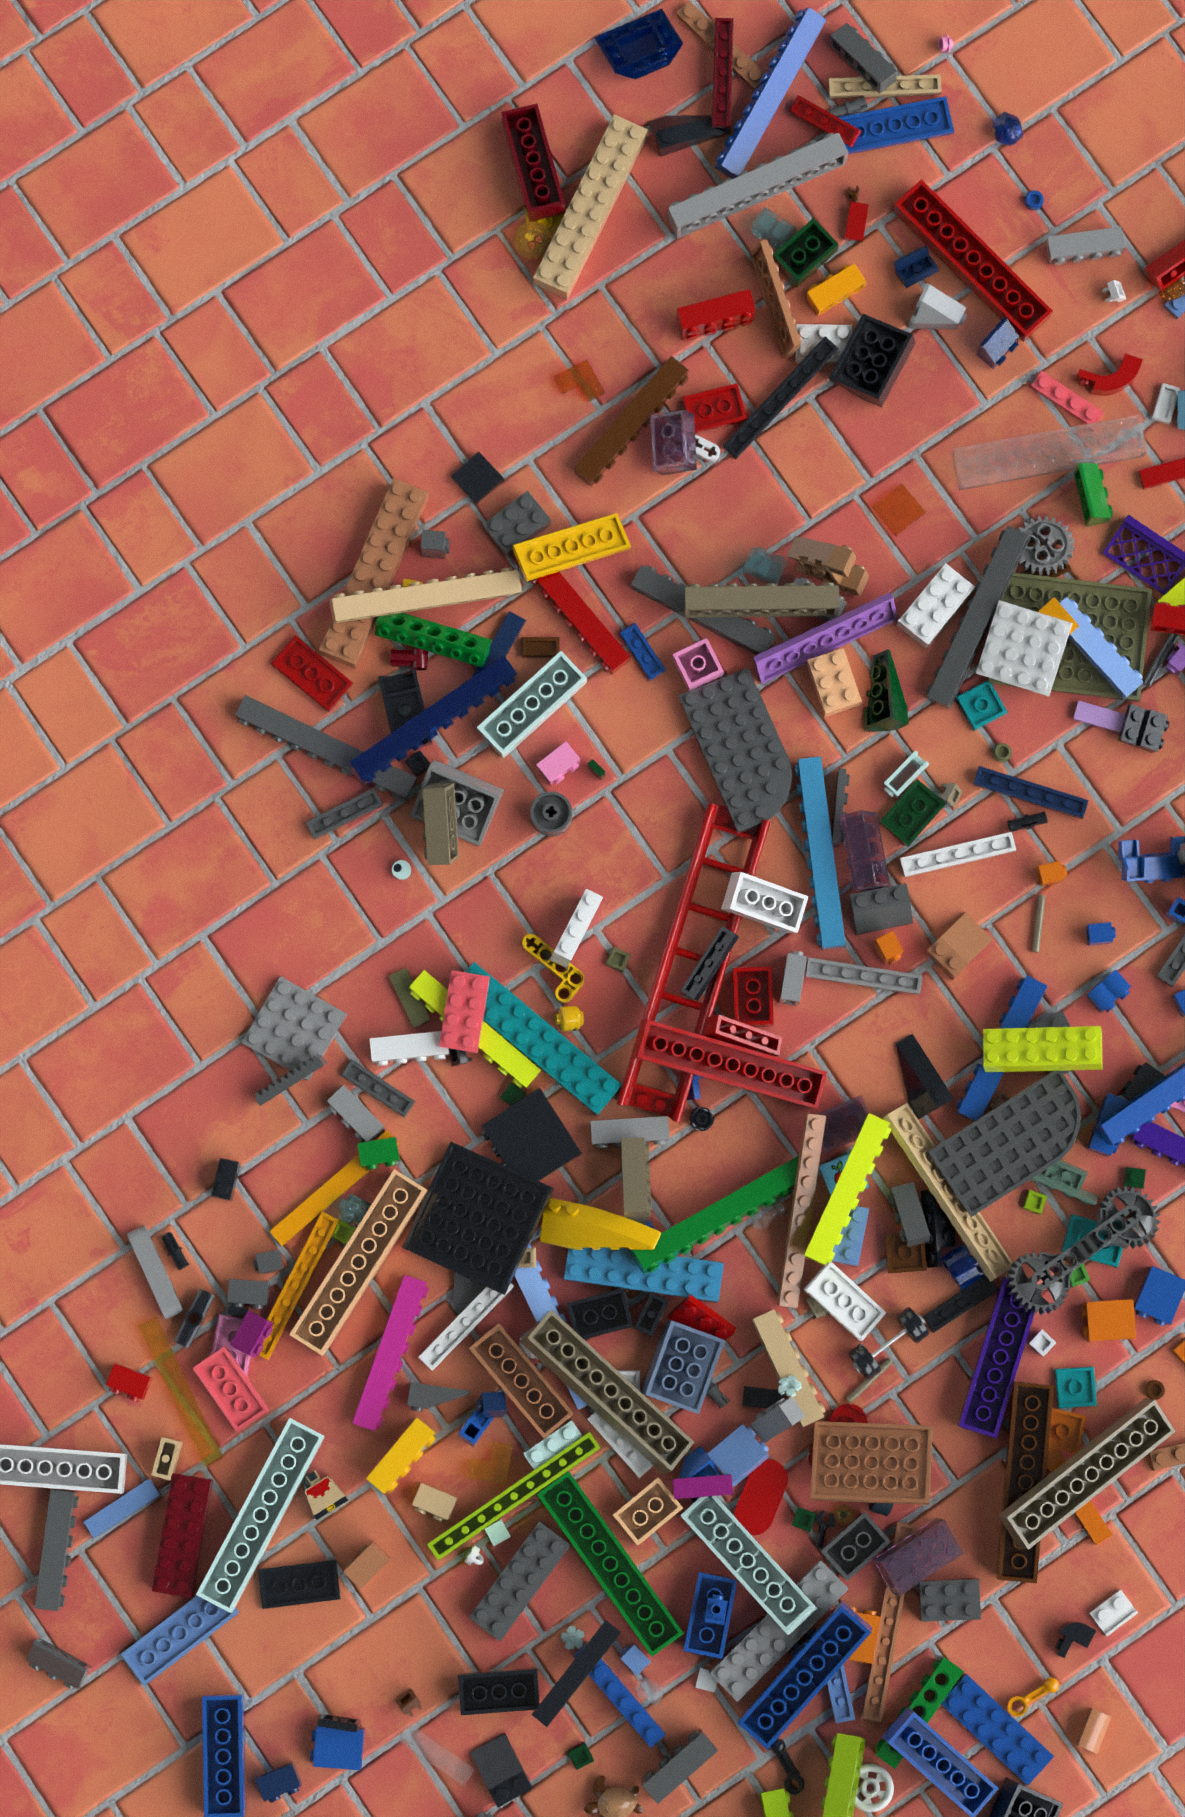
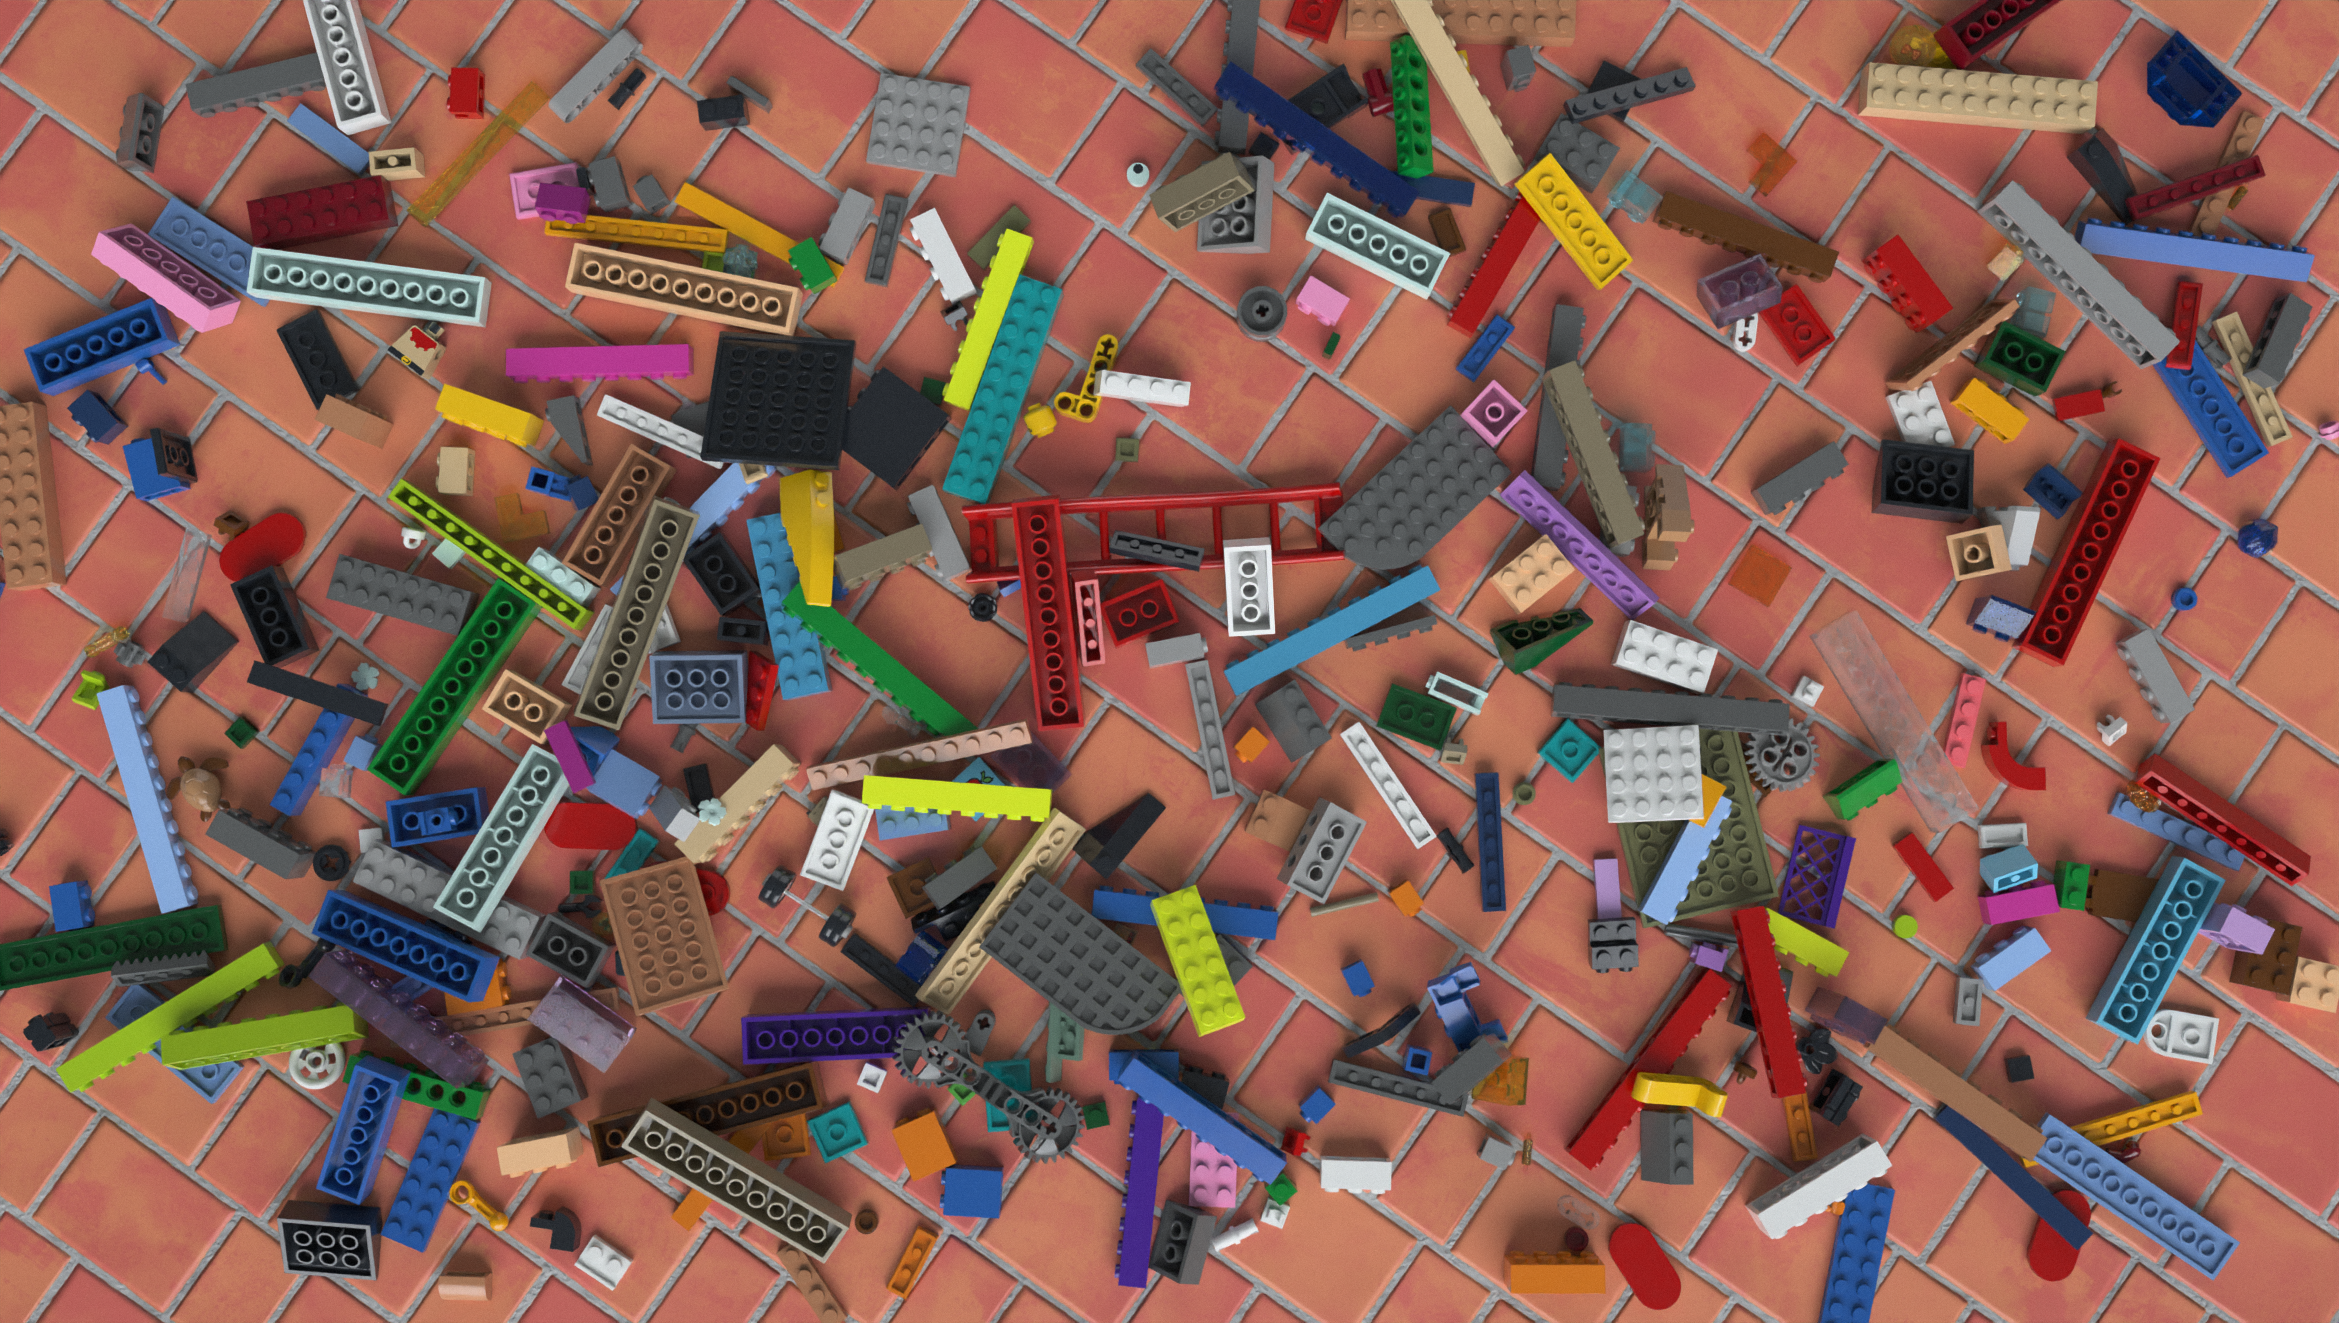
camera: 75 degrees right, 5 degrees up
(188, 1330) = (547, 136): black piece -> none
(188, 1680) = (165, 277): none -> bright pink brick
(218, 1153) = (749, 94): none -> dark grey tile
(230, 1388) = (497, 204): coral plate -> none
(250, 1727) = (147, 365): none -> blue hand
(290, 1079) = (857, 138): dark grey gear -> none
(436, 1684) = (263, 545): none -> red tile
(464, 1011) = (1001, 298): coral plate -> none
(488, 467) = (1629, 95): none -> black plate
(569, 493) = (1634, 197): none -> clear light blue brick
(722, 1723) = (322, 859): none -> black gear
(725, 232) = (2006, 261): none -> clear yellow bracket
(738, 39) = (2237, 197): none -> clear yellow piece
(780, 397) = (1839, 394): black tile -> none
(798, 1472) = (634, 854): none -> teal tile
(835, 451) = (1800, 478): none -> dark grey brick
(861, 1700) = (399, 1018): none -> clear purple brick
(864, 850) = (1351, 678): clear purple brick -> none
(866, 1383) = (752, 894): dark tan bar -> none
(943, 340) = (1978, 552): none -> light nougat brick
(990, 923) = (1321, 850): none -> light grey brick
(1001, 507) = (1807, 691): none -> white tile
(1008, 1627) = (540, 1152): none -> light nougat brick
(1034, 1201) = (1027, 1012): lime tile -> none
(1038, 1244) = (979, 1034): none -> dark grey piece
(1108, 991) = (1295, 1011): blue brick -> none
(1150, 929) = (1382, 1034): none -> black beam

